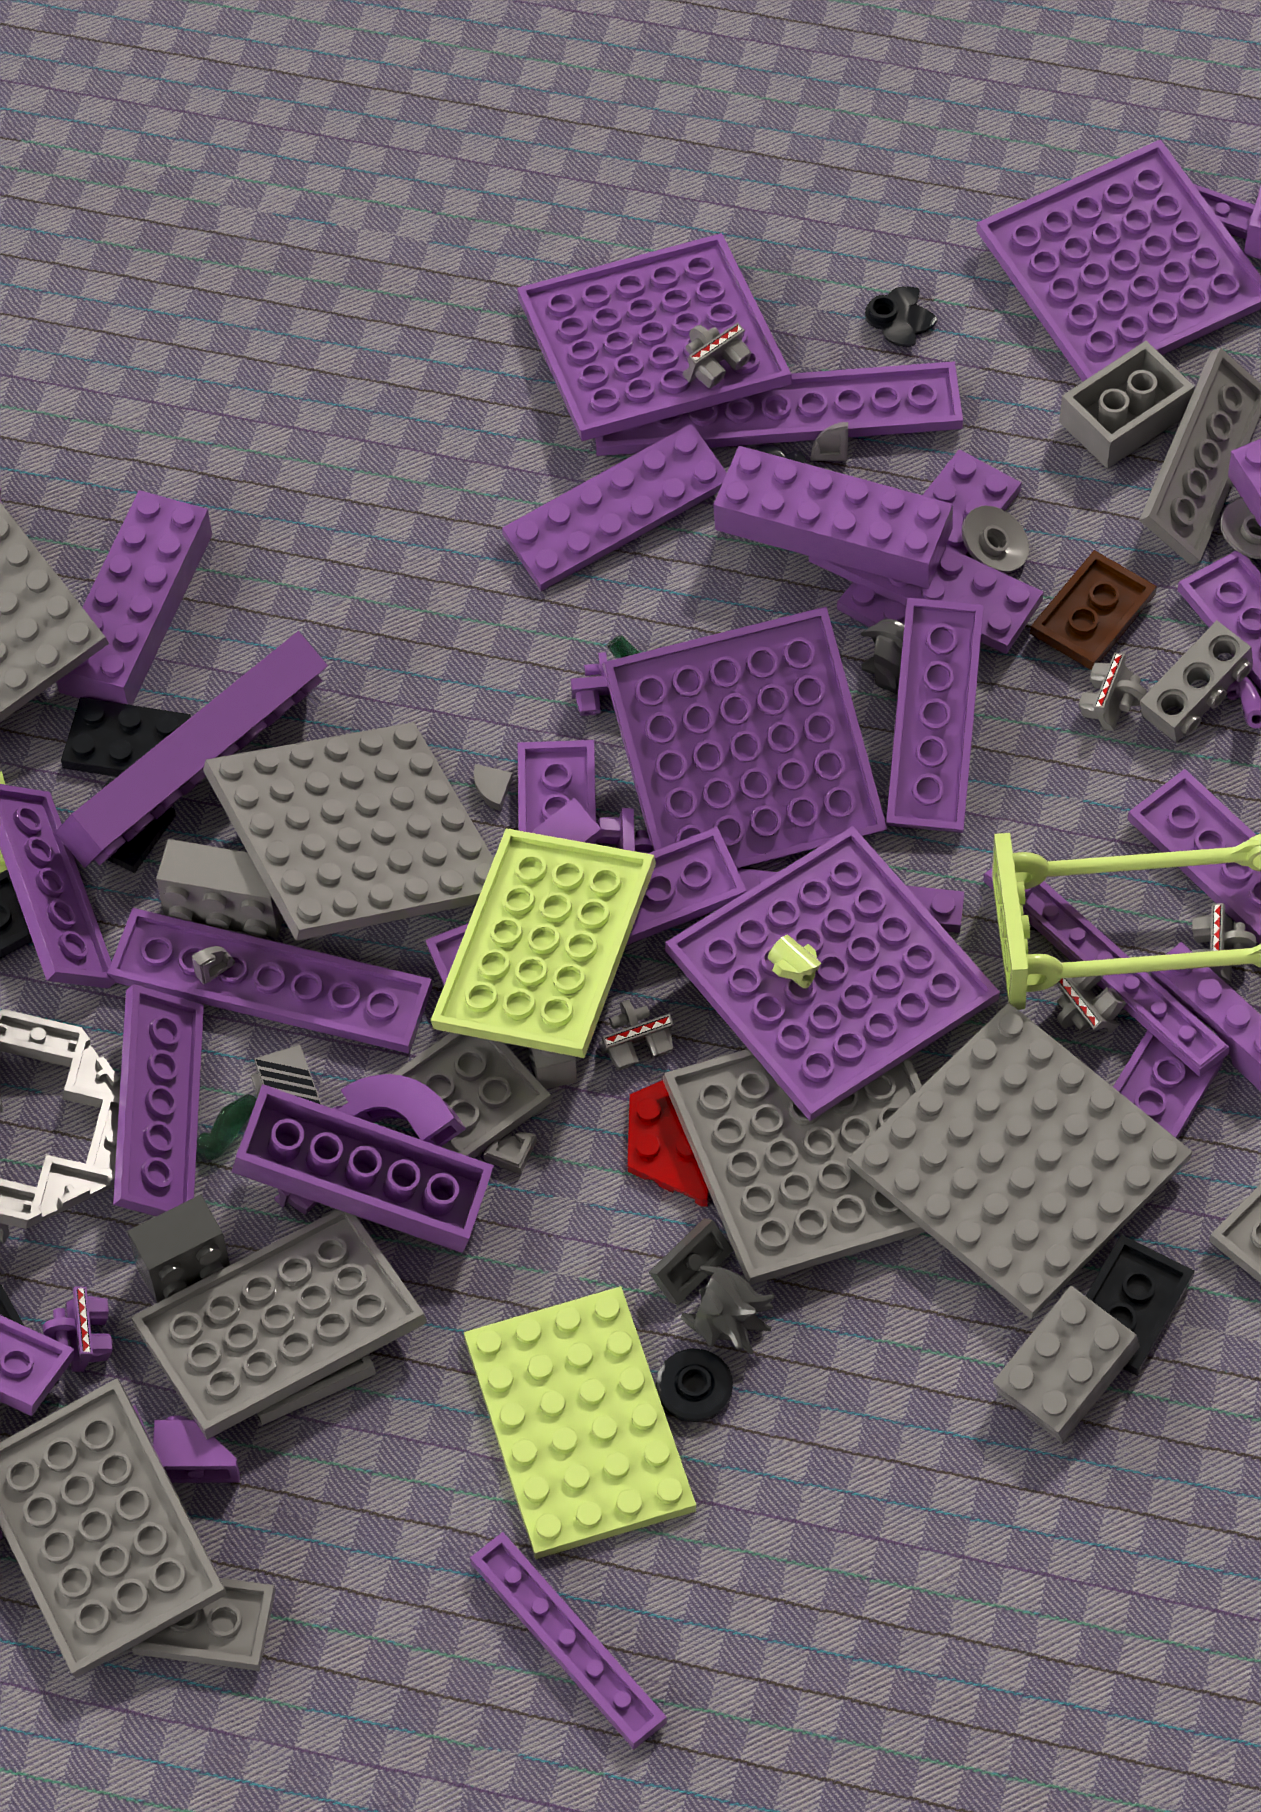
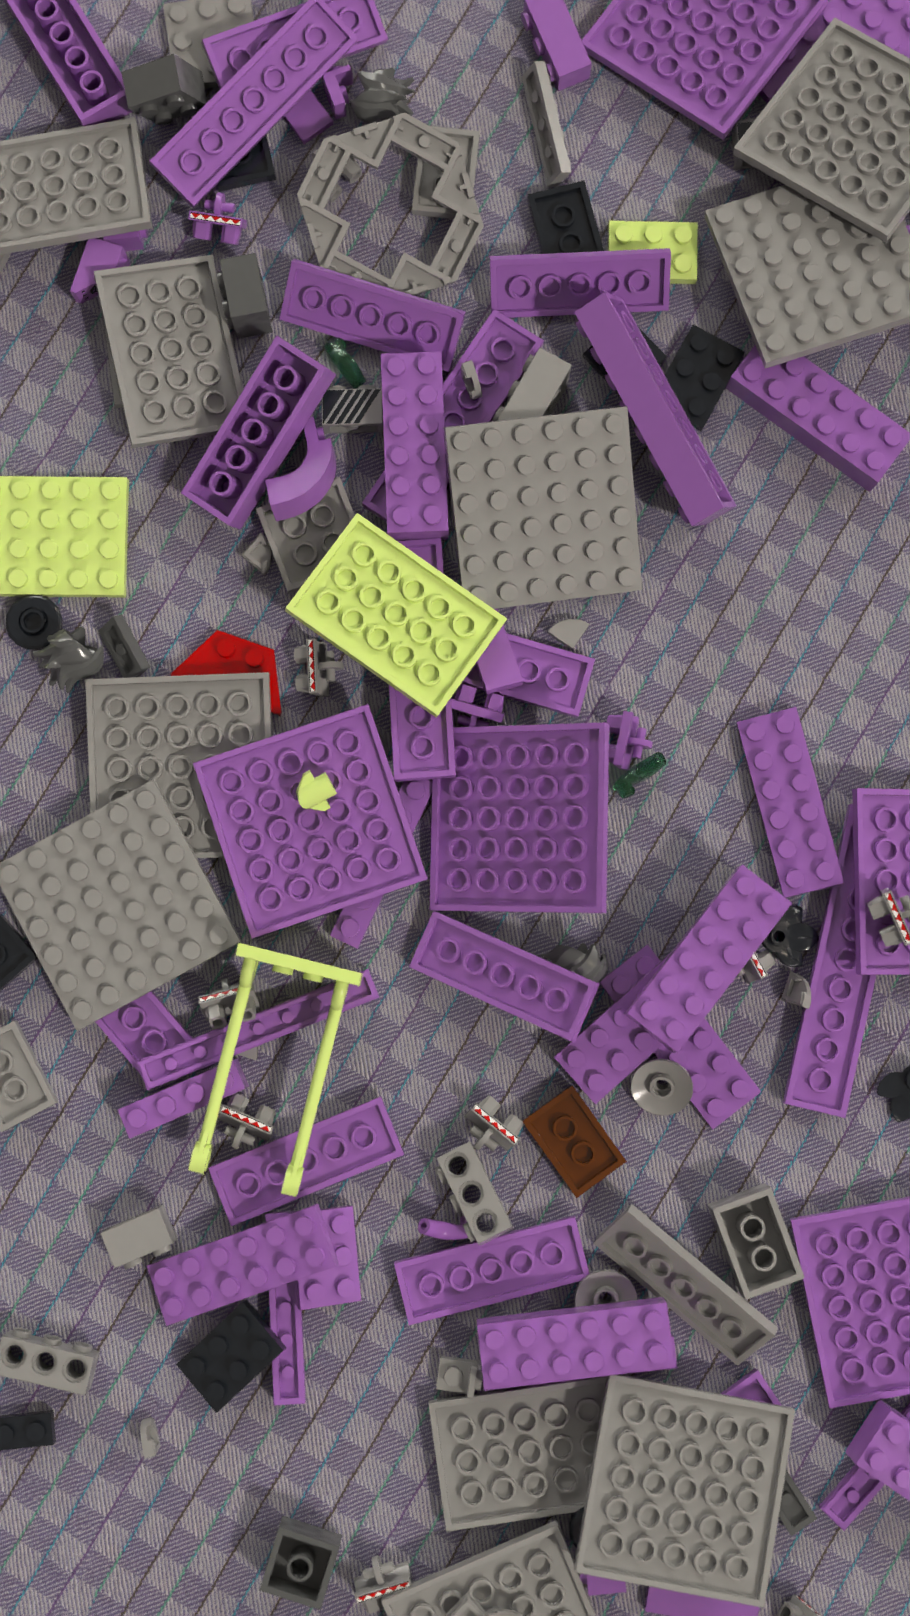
camera: 105 degrees right, 25 degrees up
(320, 993) = (414, 446): none -> medium lavender brick

